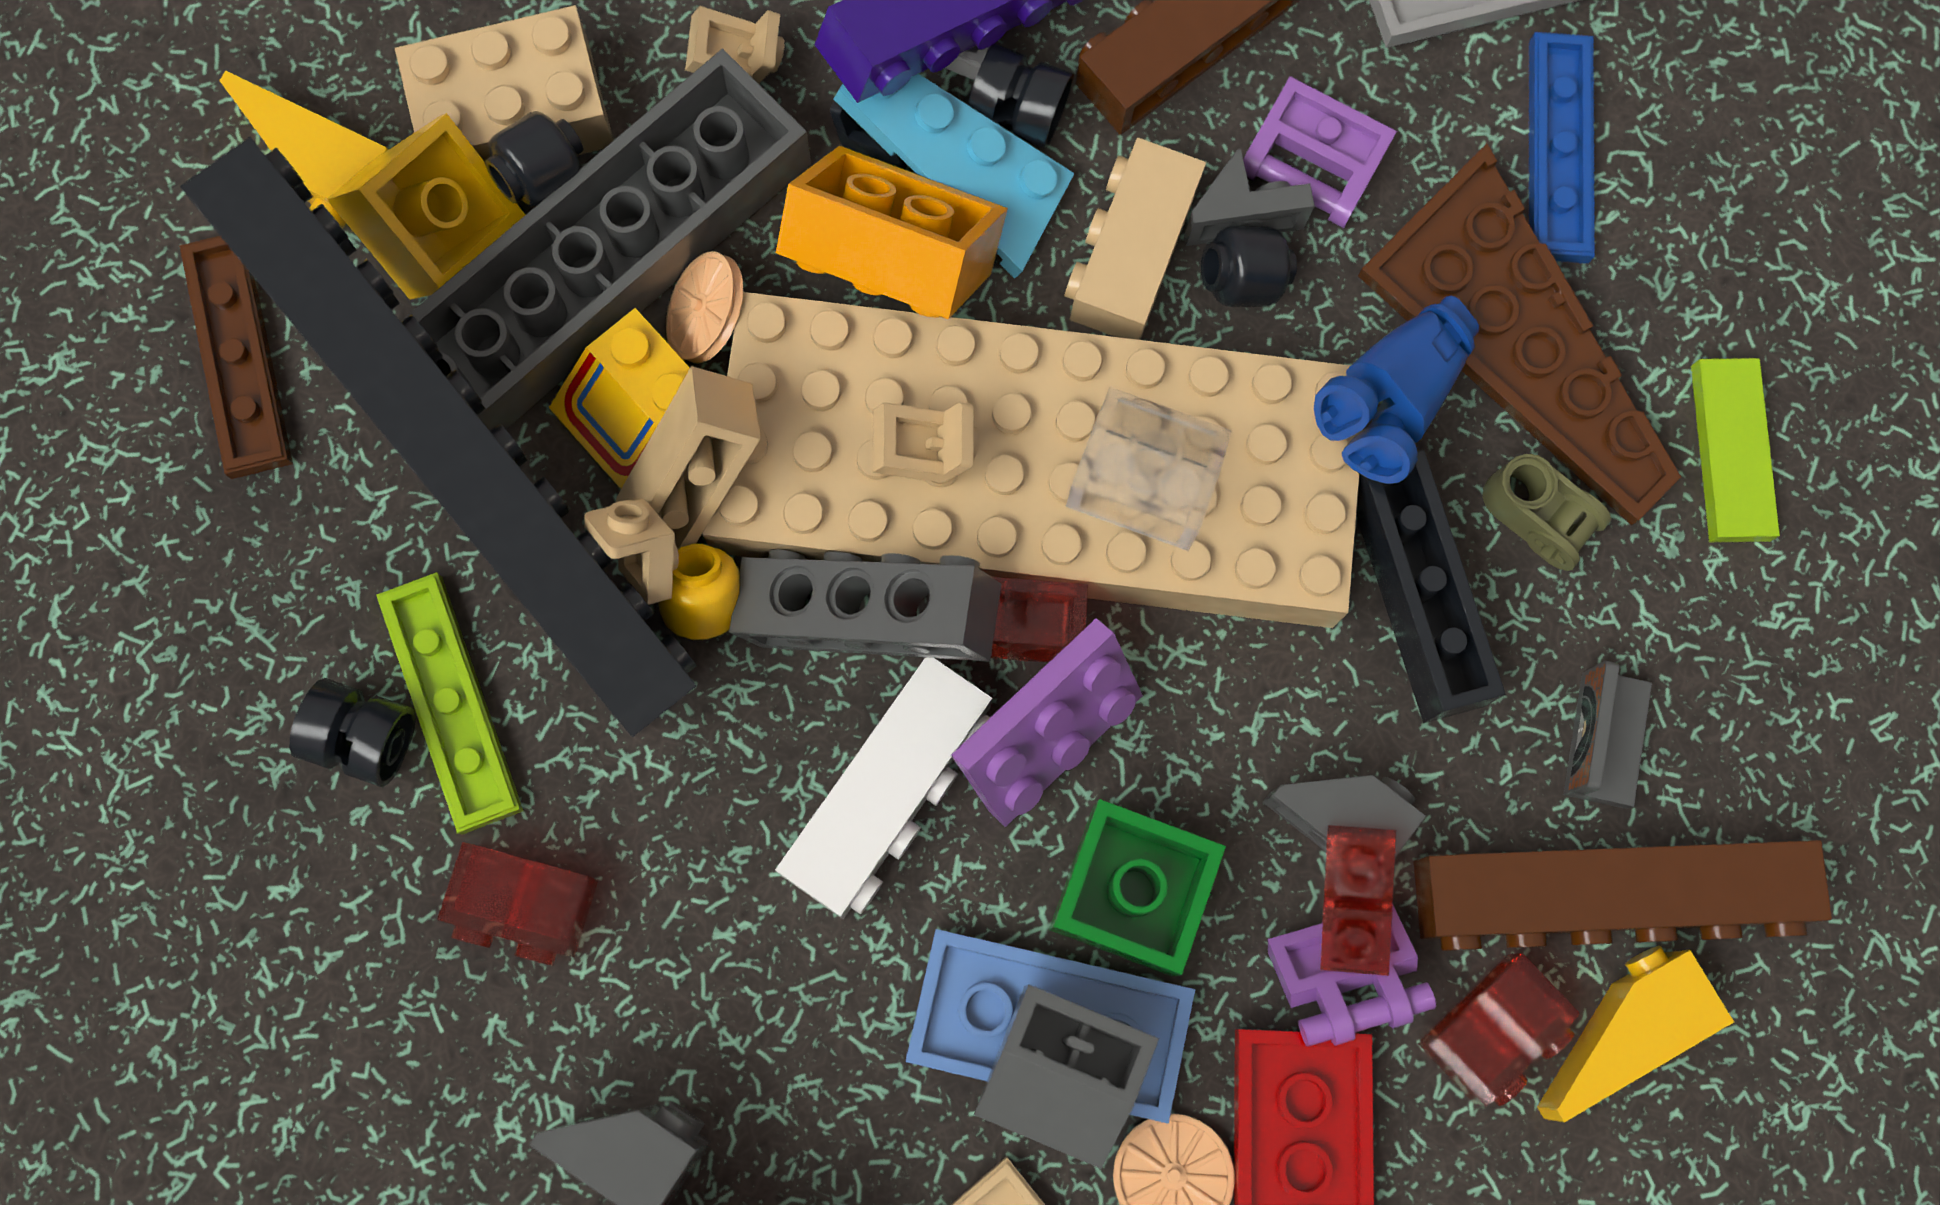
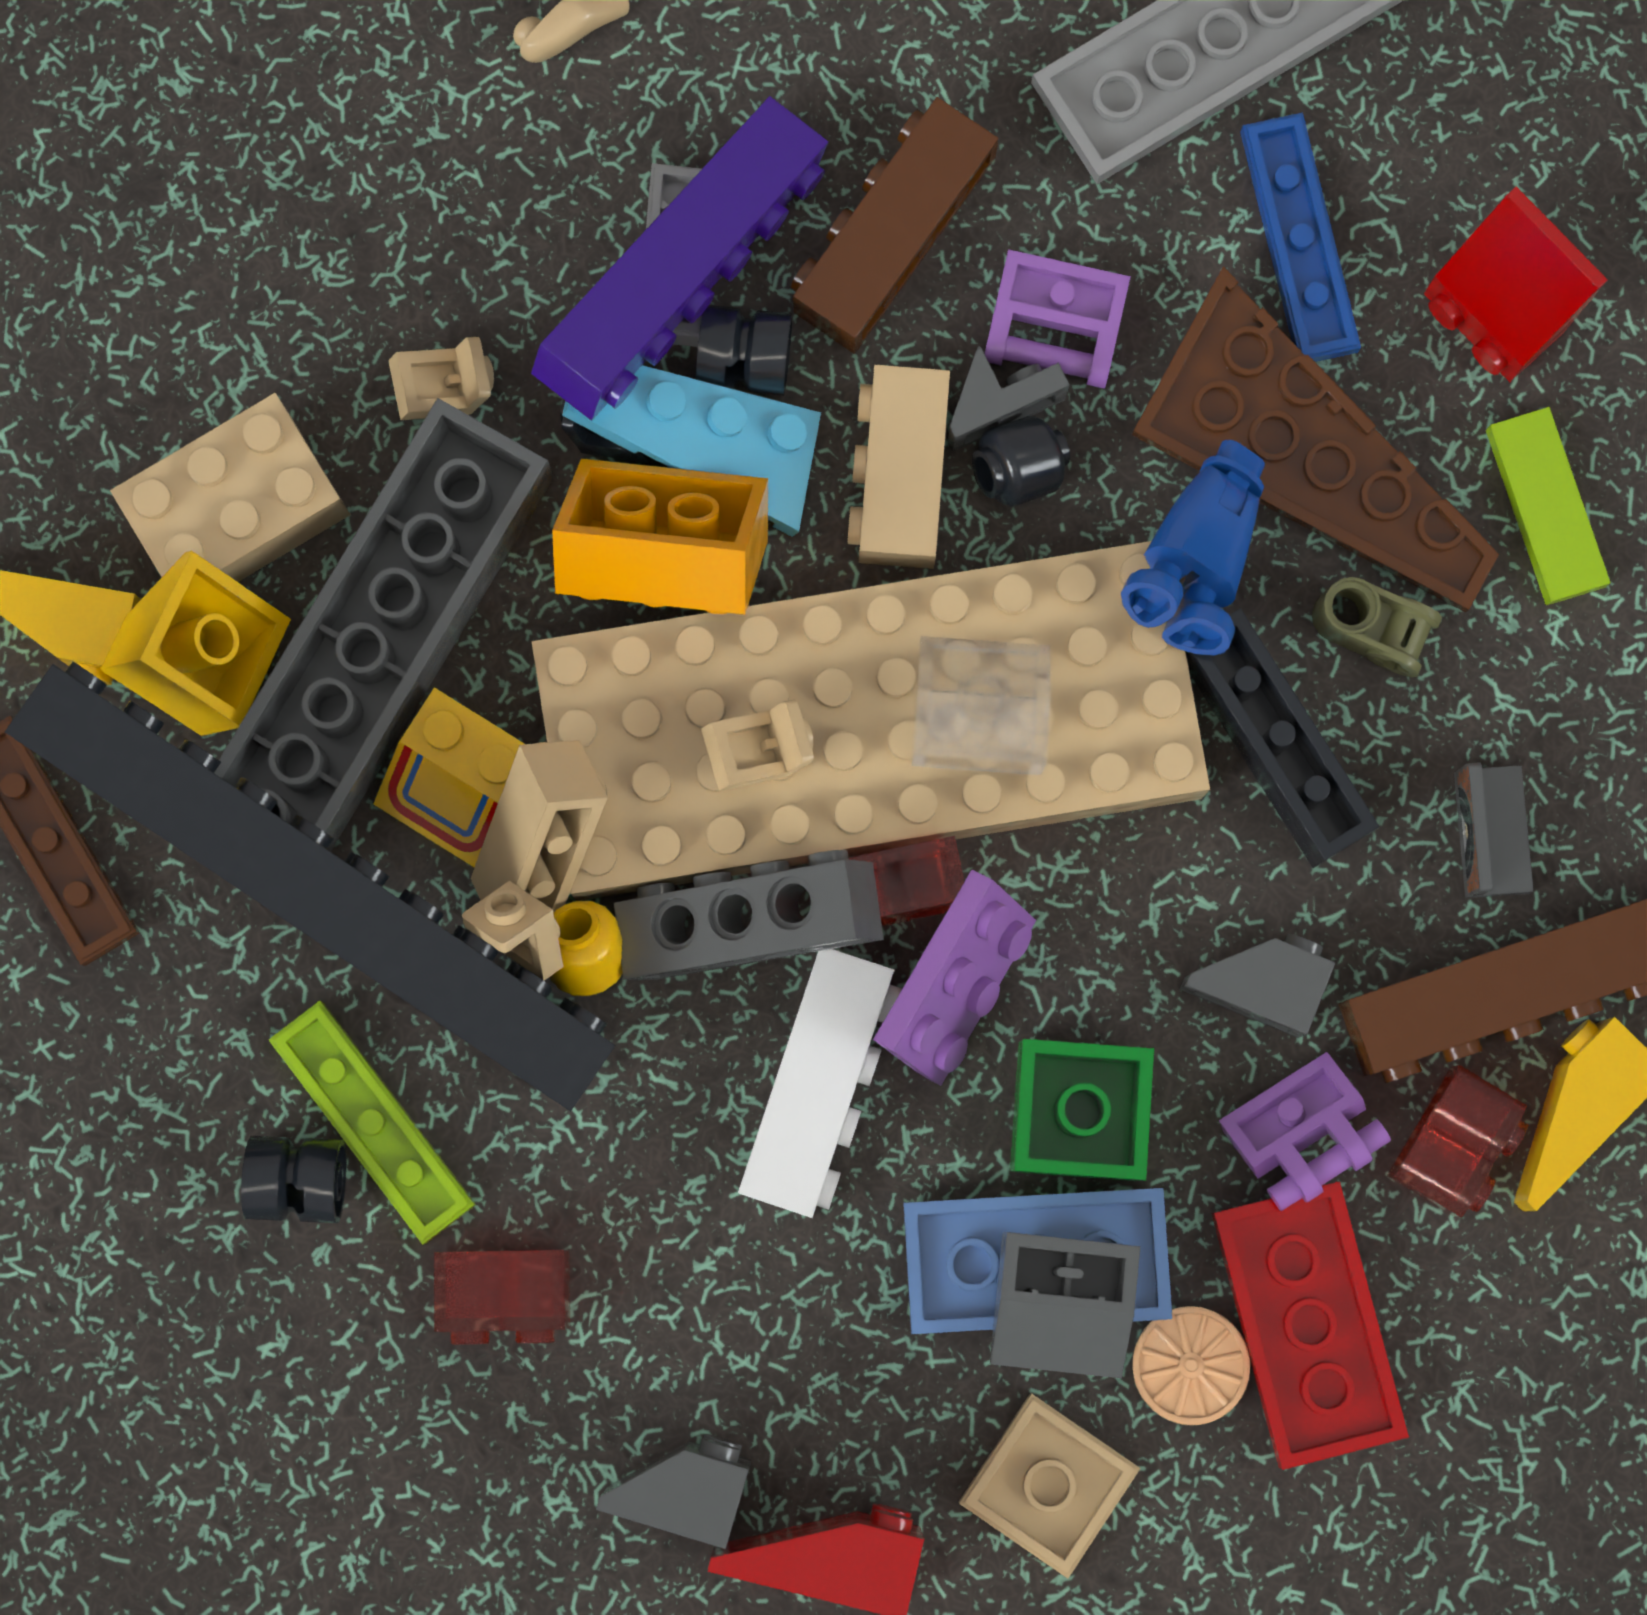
camera: 10 degrees left, 5 degrees up
(533, 157) = (288, 566): black head -> none
(704, 307) = (497, 662): light nougat wheel -> none
(1358, 900) = (1292, 1061): clear red slope -> none
(1765, 227) = (1513, 286): none -> red slope

